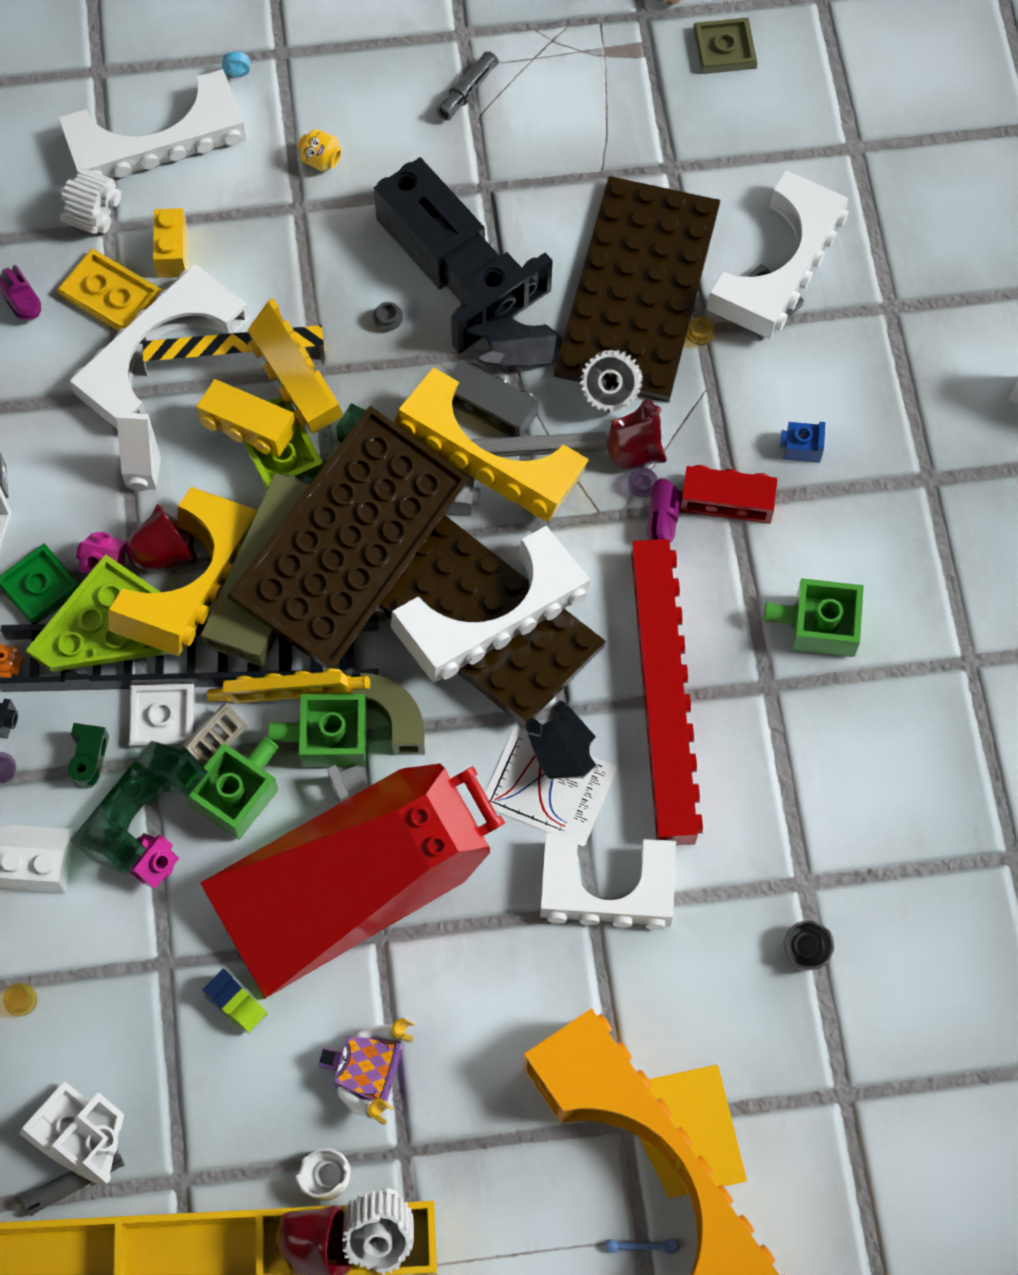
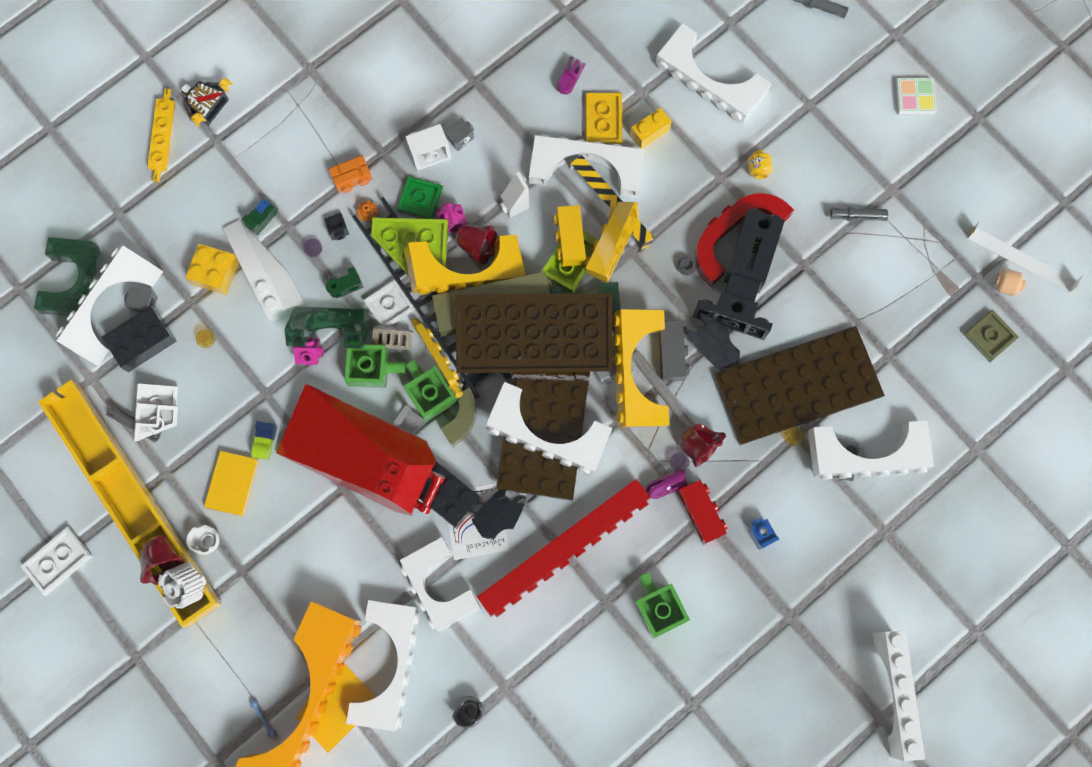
camera: 60 degrees right, 10 degrees up
(89, 201) = (644, 73): white brick -> none
(236, 64) = (782, 87): medium azure tile -> none
(265, 1089) = (231, 483): none -> yellow tile
(368, 1067) = (266, 527): torso -> none
(405, 288) = (705, 260): none -> red arch
(509, 788) = (453, 498): none -> black brick
(627, 374) = (733, 407): white brick -> none
(629, 967) = (385, 709): none -> white arch

